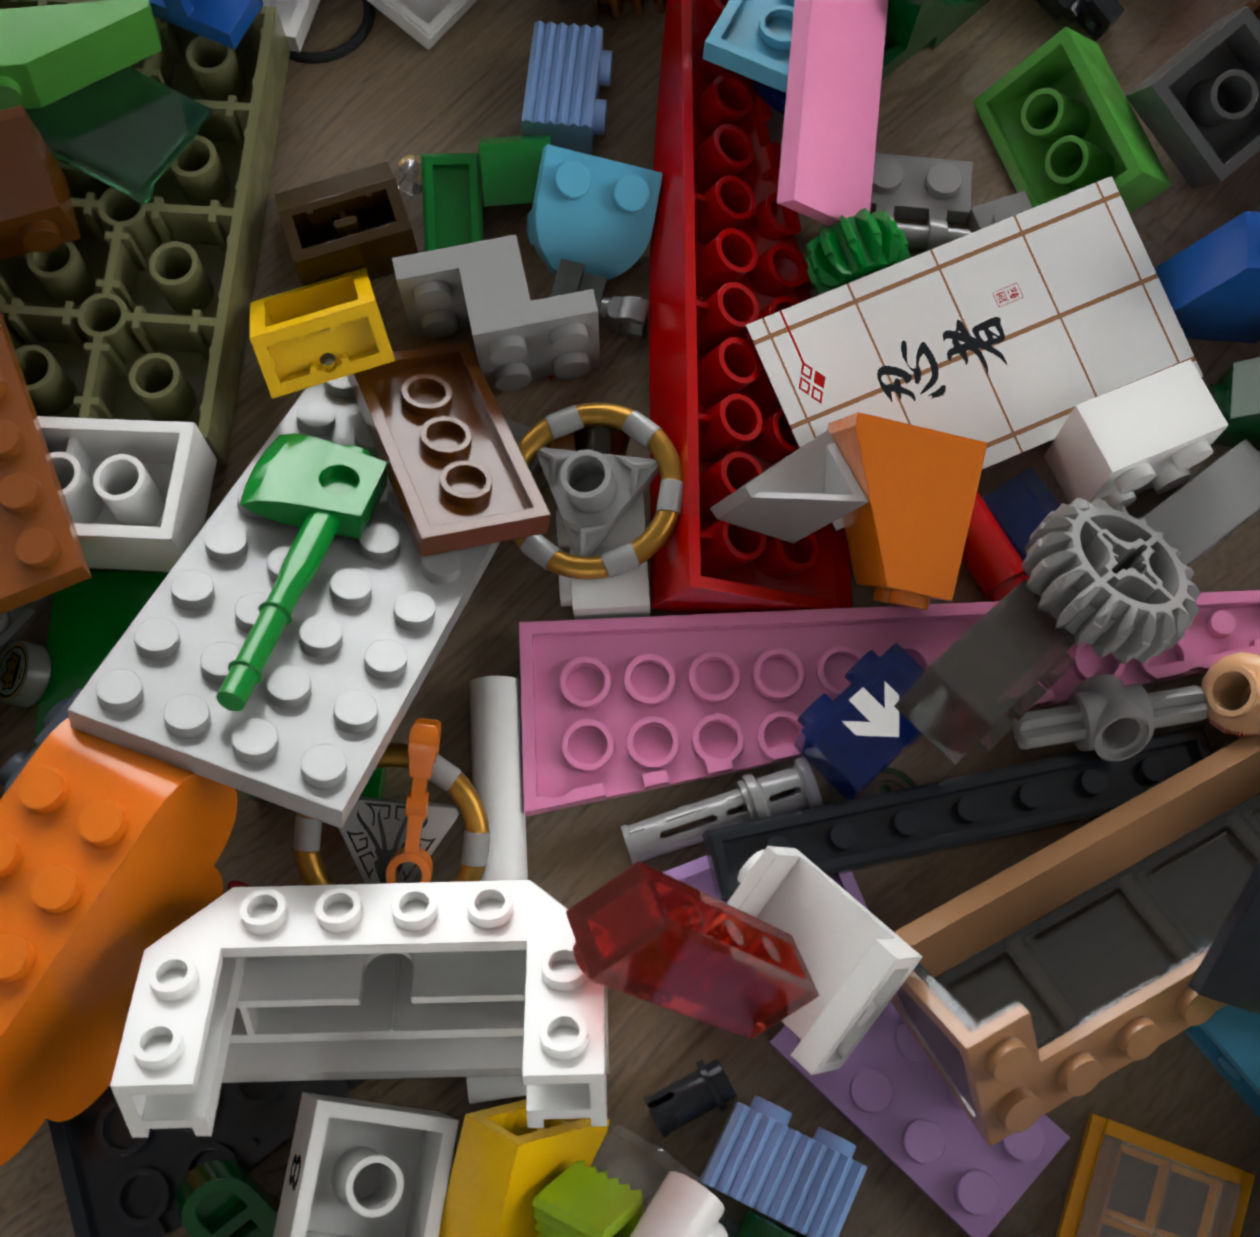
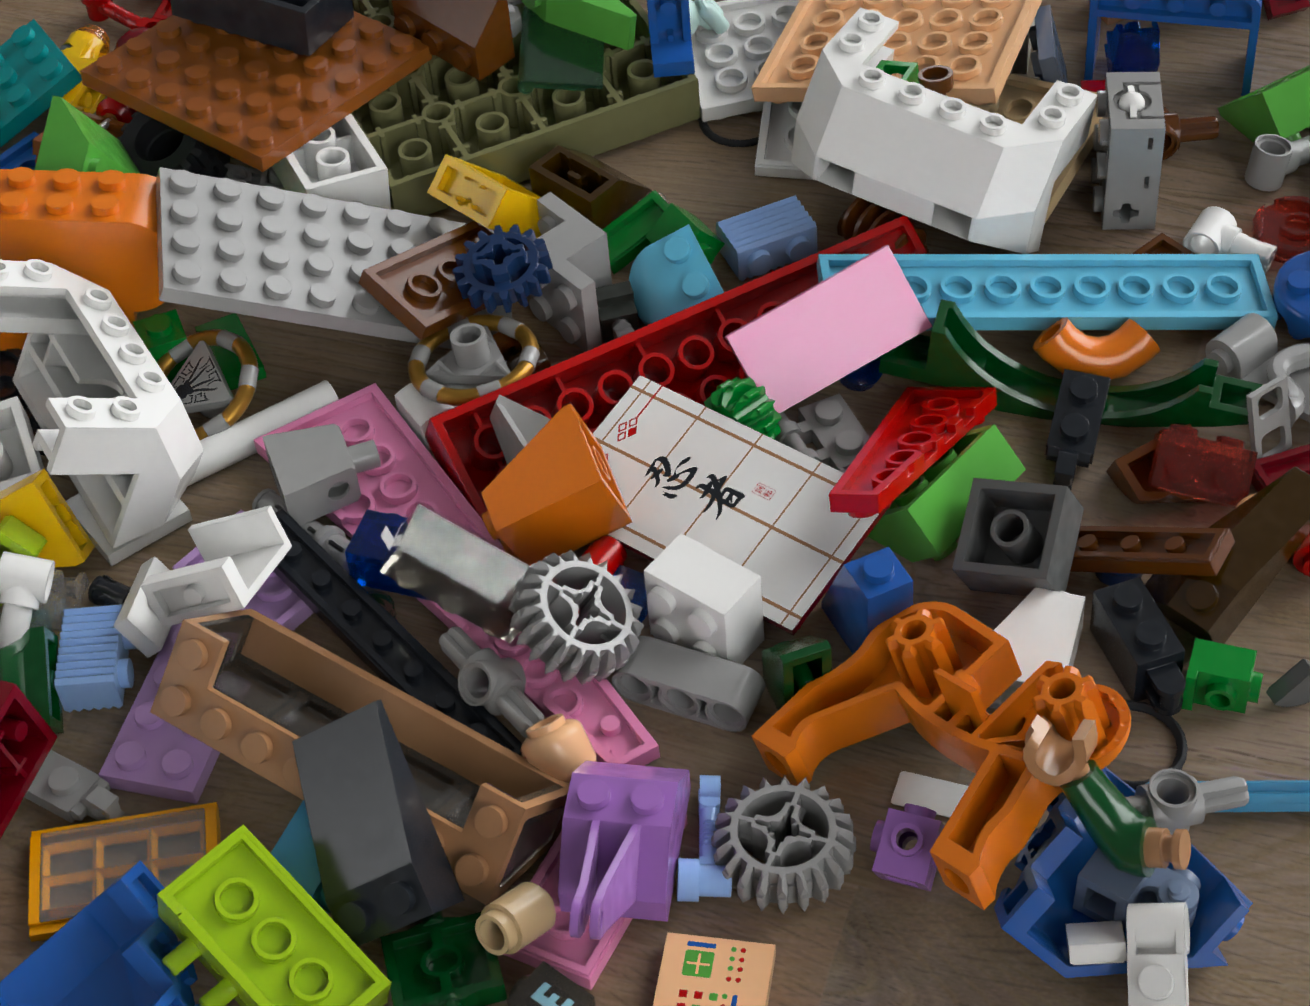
camera: 65 degrees right, 25 degrees down
(266, 849) = (161, 334): none -> green brick
(325, 494) = (369, 225): green piece -> none
(422, 755) = (245, 353): orange piece -> none
(481, 362) = (503, 268): none -> dark blue gear
(662, 760) = (317, 470): none -> light grey torso
(688, 952) = (171, 473): clear red brick -> none
(753, 1070) = (137, 618): none -> white plate
(1016, 107) = (907, 443): none -> red wing

